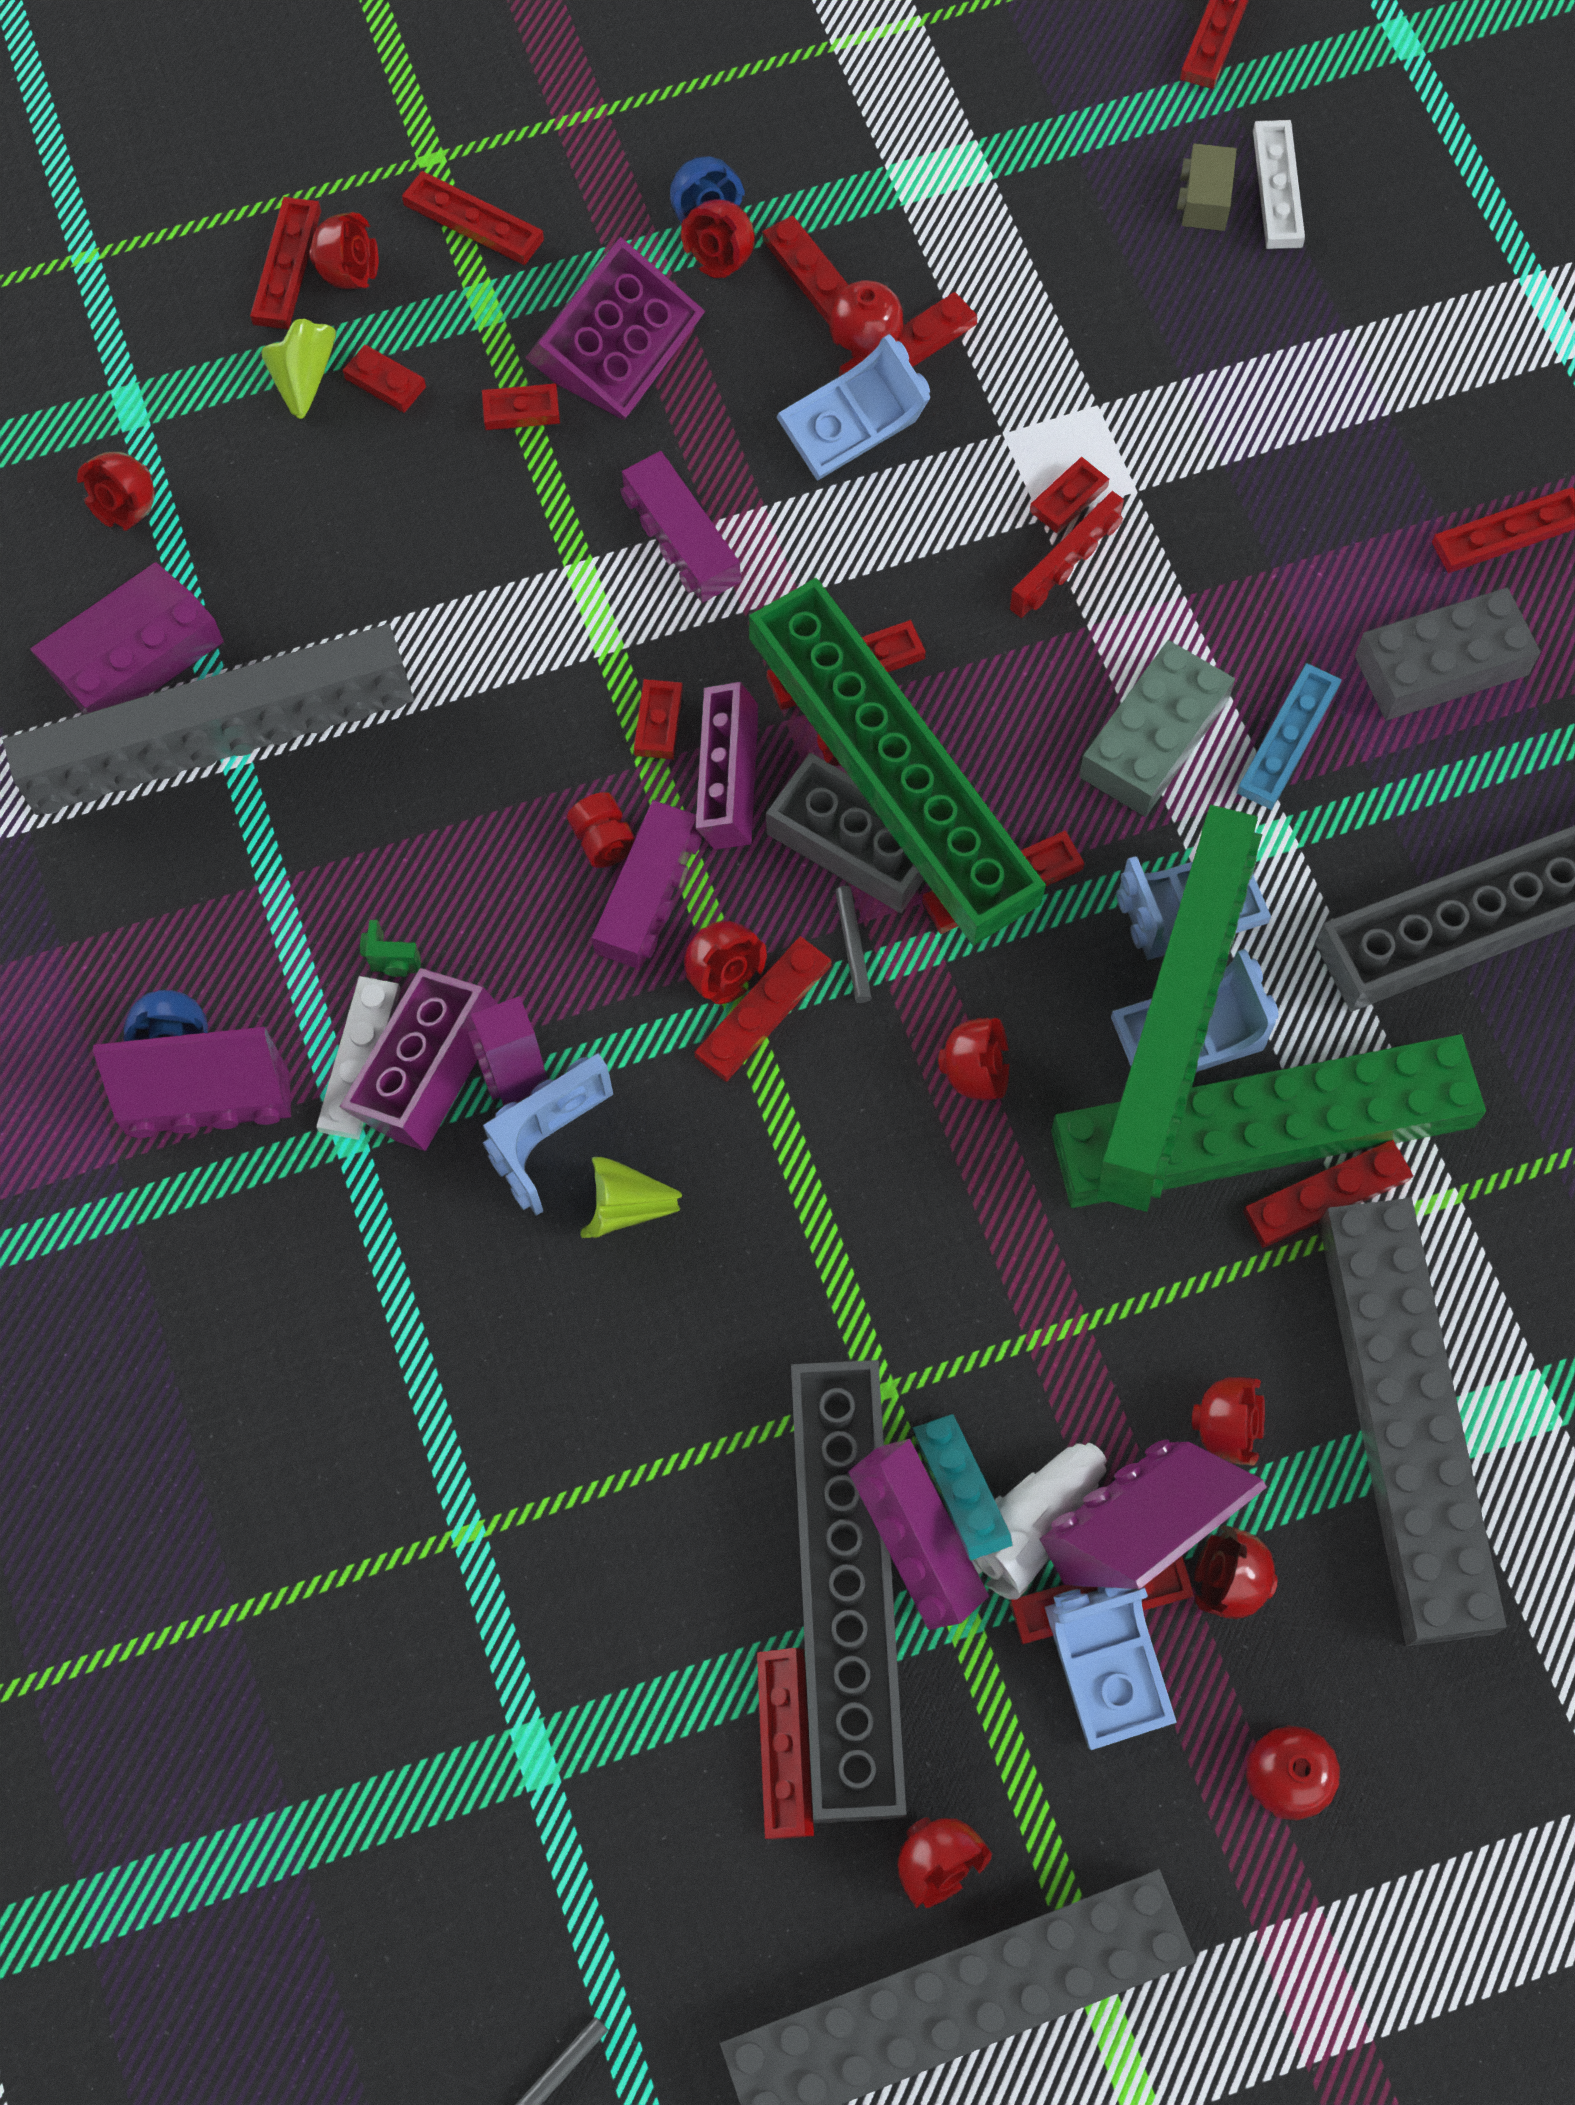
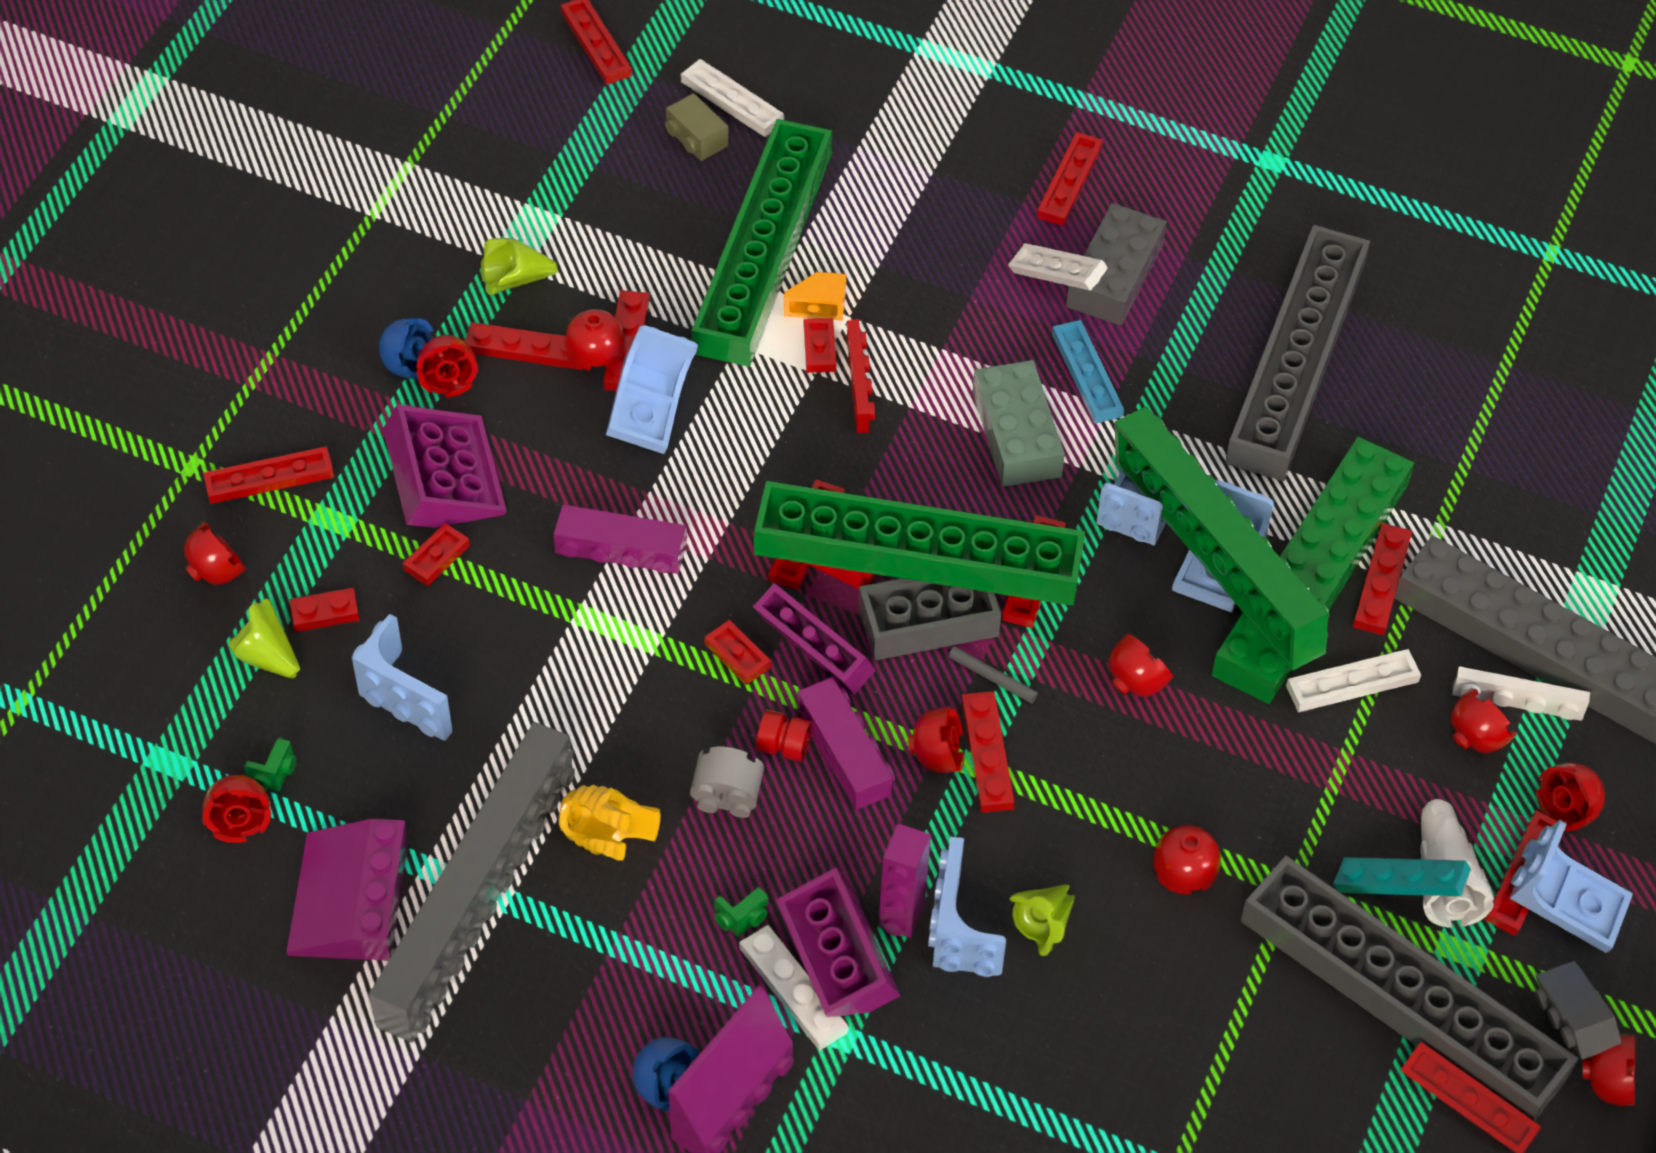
camera: 50 degrees left, 15 degrees down
(189, 483) = (278, 766): none -> green bracket
(285, 263) = (175, 595): red plate -> none
(345, 465) = (394, 689): none -> light blue bracket
(369, 764) = (603, 817): none -> yellow hair
(501, 826) = (726, 781): none -> light grey brick
(811, 1275) = (1186, 859): none -> red cylinder
(888, 191) = (513, 264): none -> lime hat
(918, 1534) = (1413, 918): magenta brick -> none
(963, 1772) = (1577, 1010): none -> dark grey brick
(1122, 447) = (817, 297): none -> light orange slope
(1131, 348) = (762, 243): none -> green brick
(1147, 1516) = (1512, 795): magenta slope -> none
(1170, 1262) = (1353, 680): none -> white plate
(1322, 1444) = (1522, 693): none -> white plate
(1371, 607) = (1058, 266): none -> white plate

